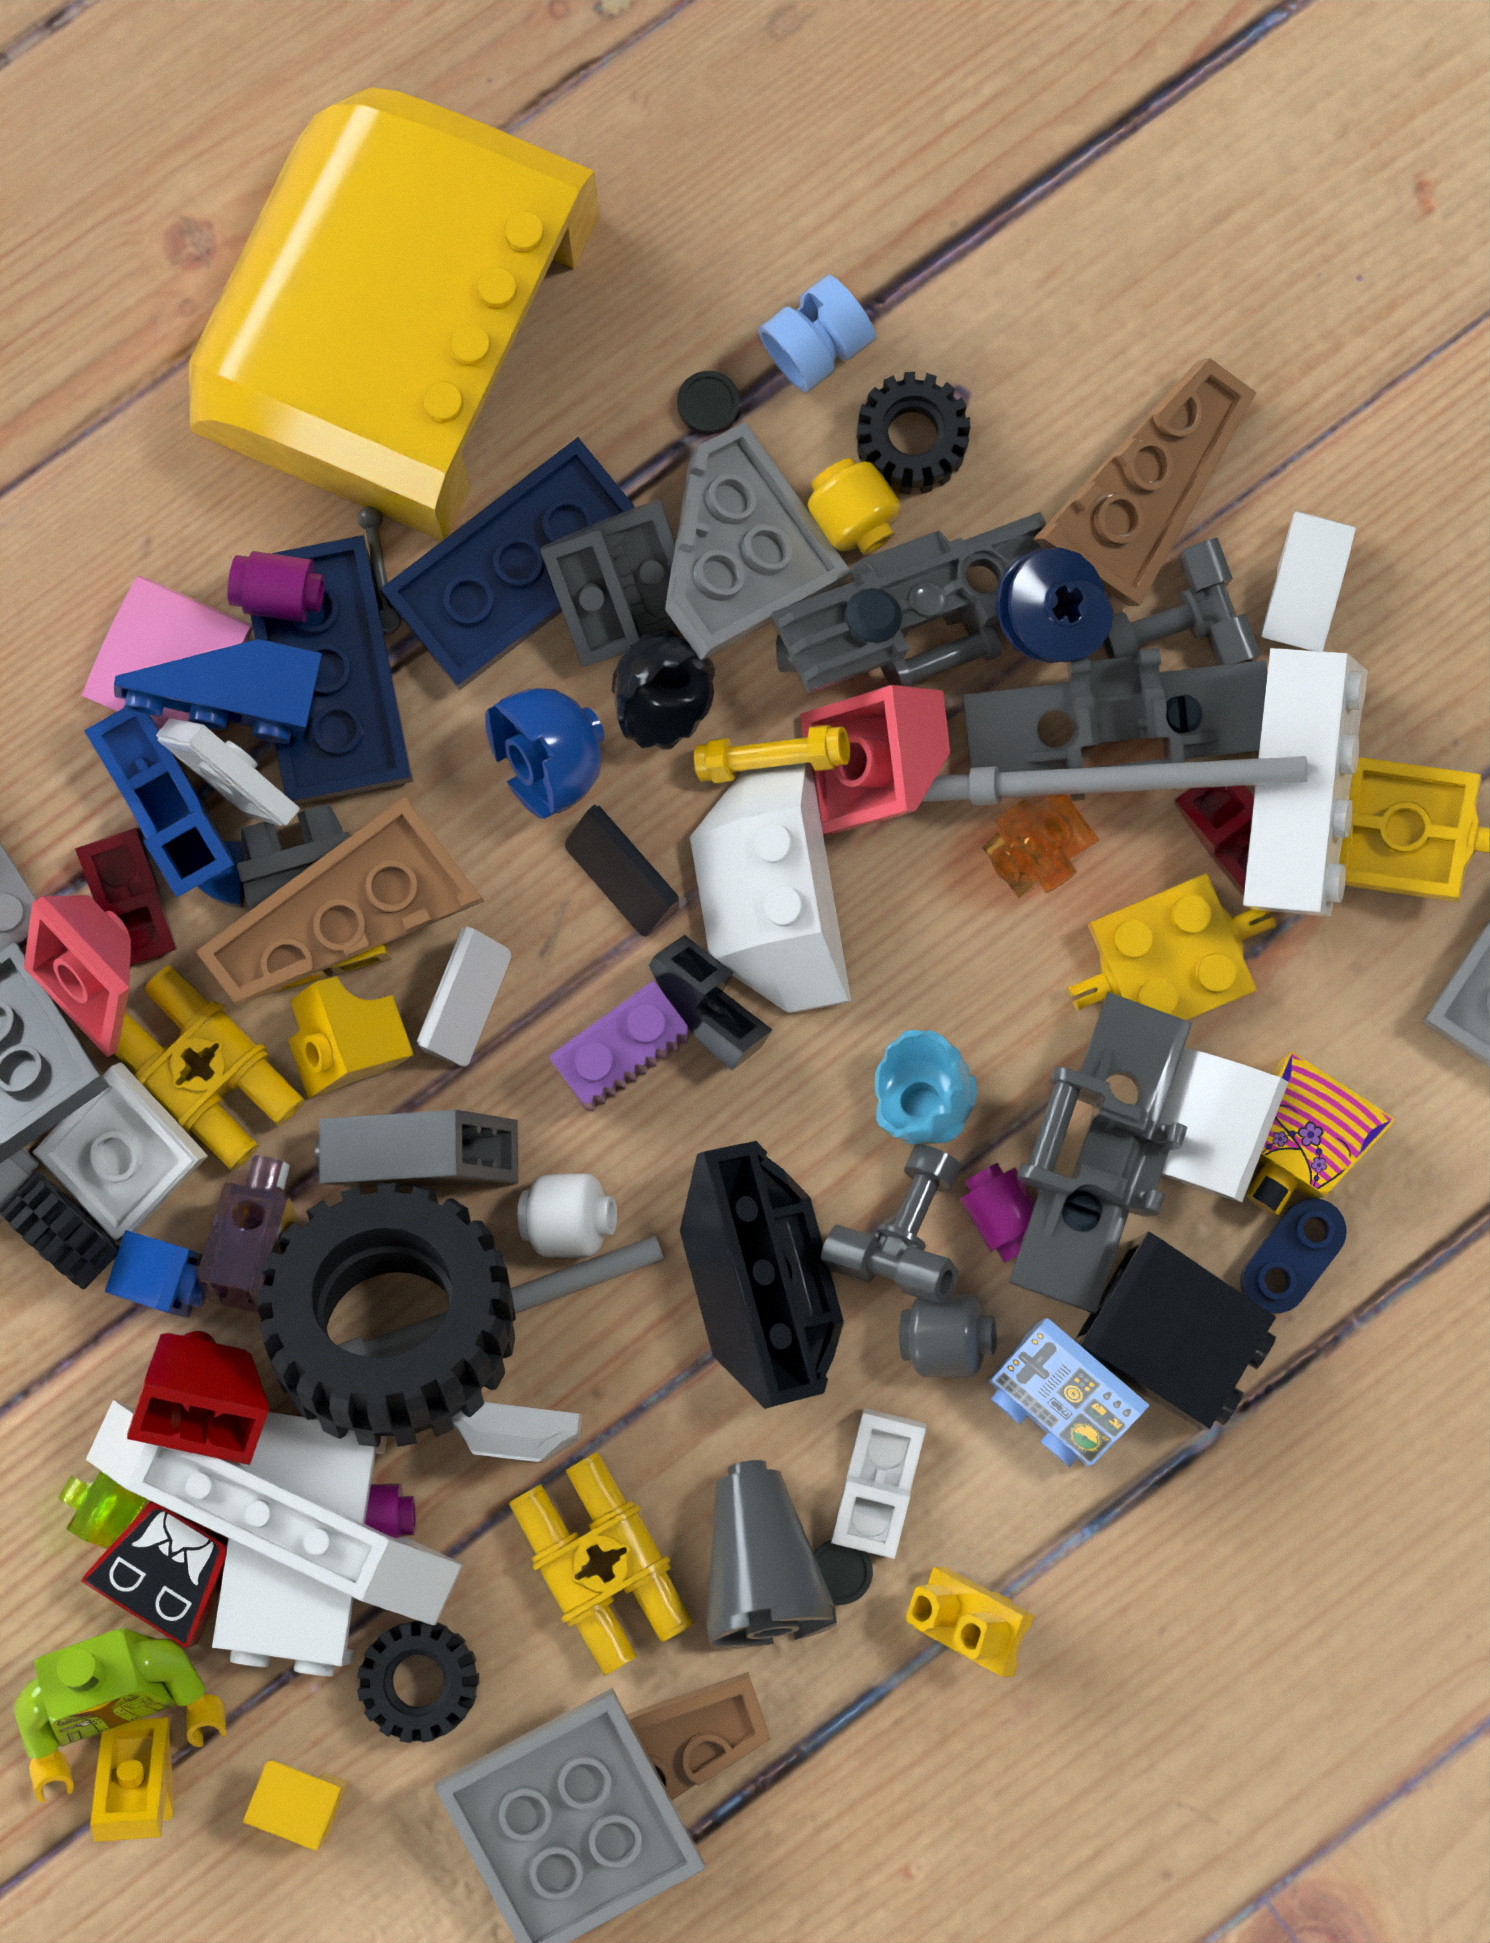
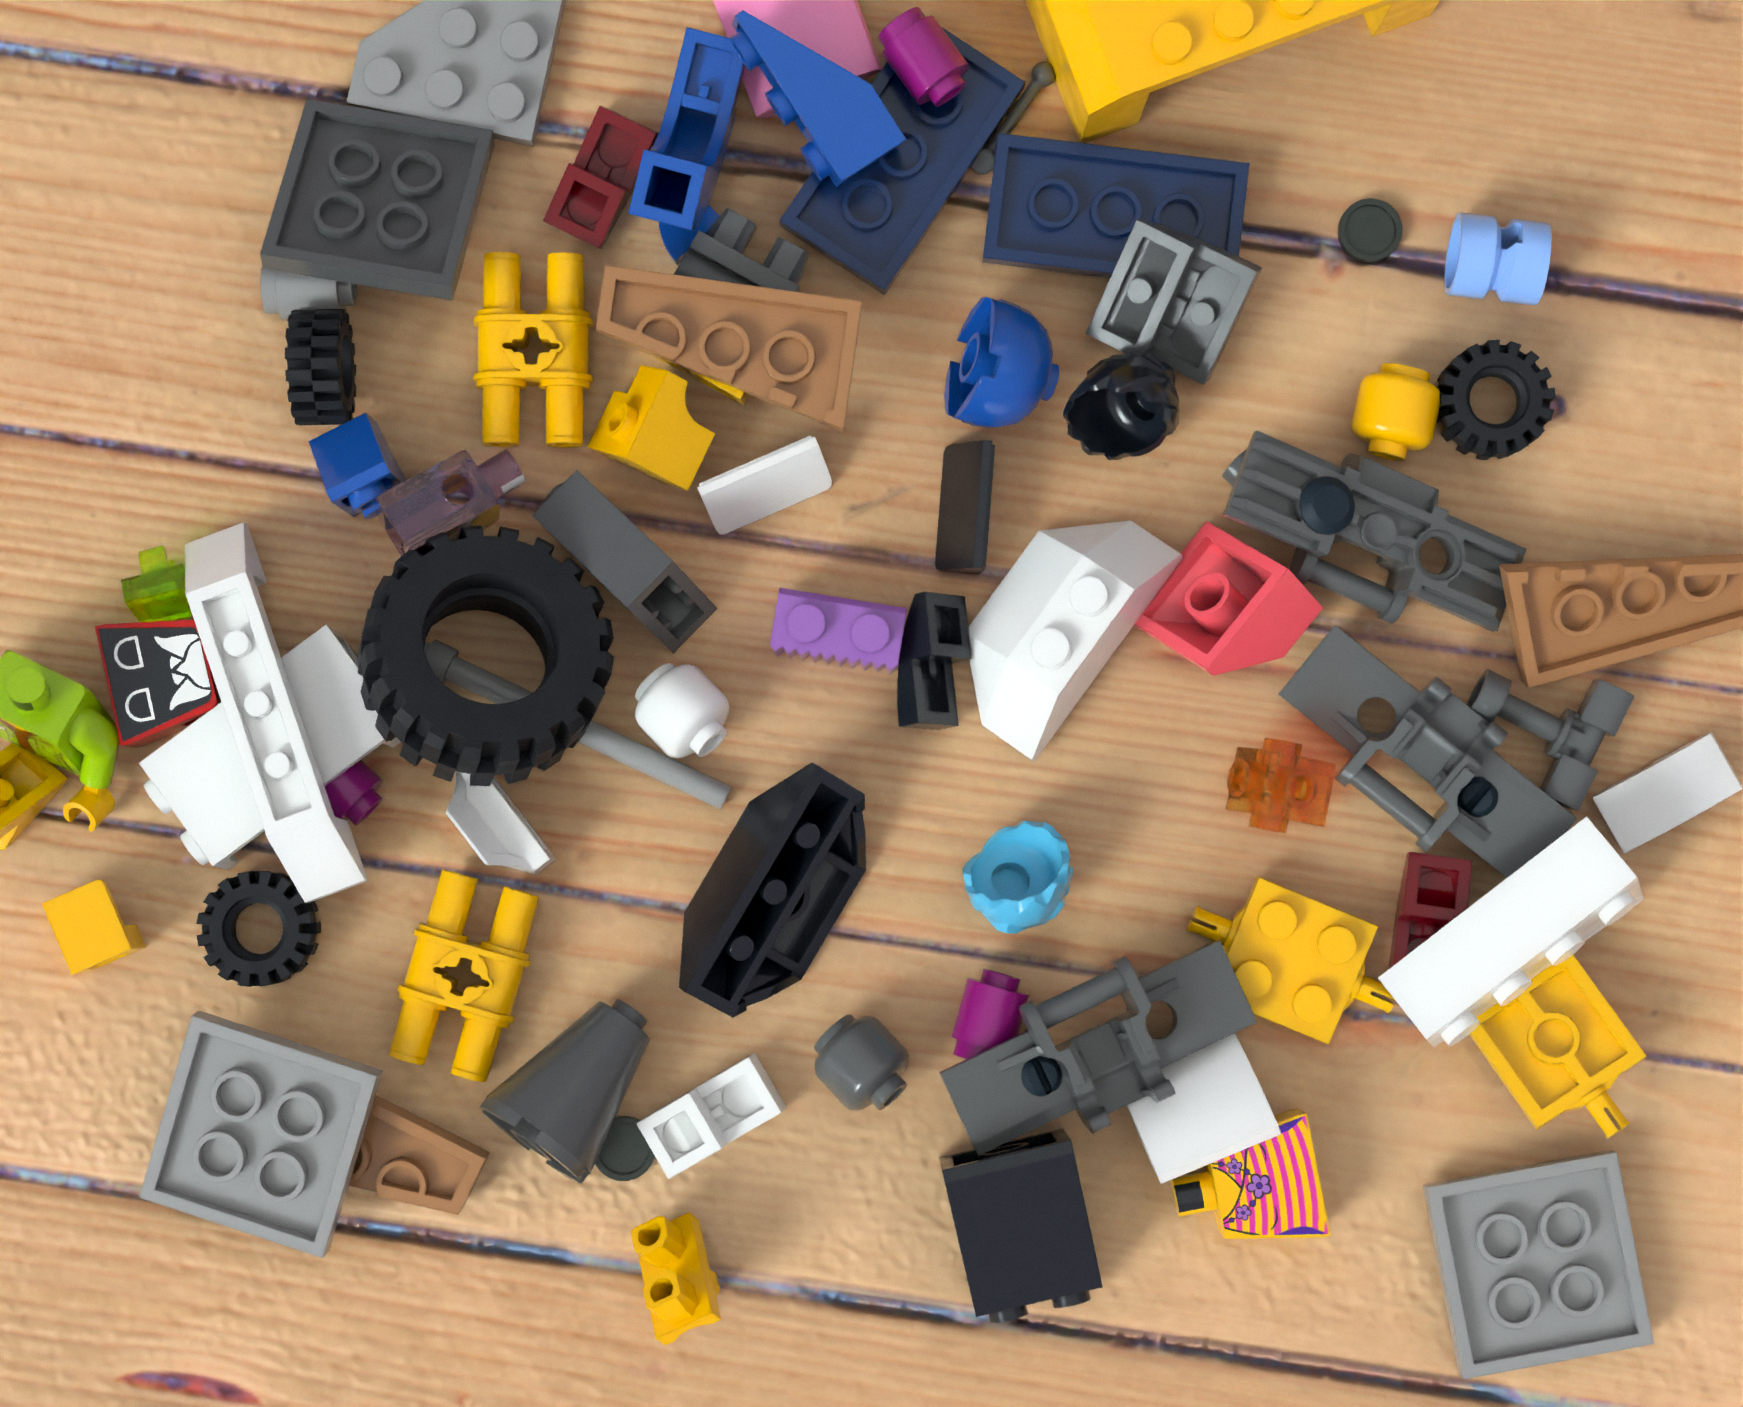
camera: 45 degrees right, 5 degrees up
(82, 963) = (519, 193): coral slope -> none
(120, 1154) = (417, 355): white plate -> none
(201, 1399) = (298, 583): red torso -> none
(227, 771) = (758, 158): white plate -> none
(742, 545) = (1286, 360): light grey plate -> none
(822, 748) = (1194, 562): yellow bar -> none
(896, 1248) = (886, 968): dark grey bar -> none
(989, 785) = (1286, 708): light grey bar -> none
(1053, 606) = (1463, 628): dark blue piece -> none
(1065, 1395) = (900, 1189): slope -> none
(1294, 1255) = (1162, 1254): dark blue plate -> none

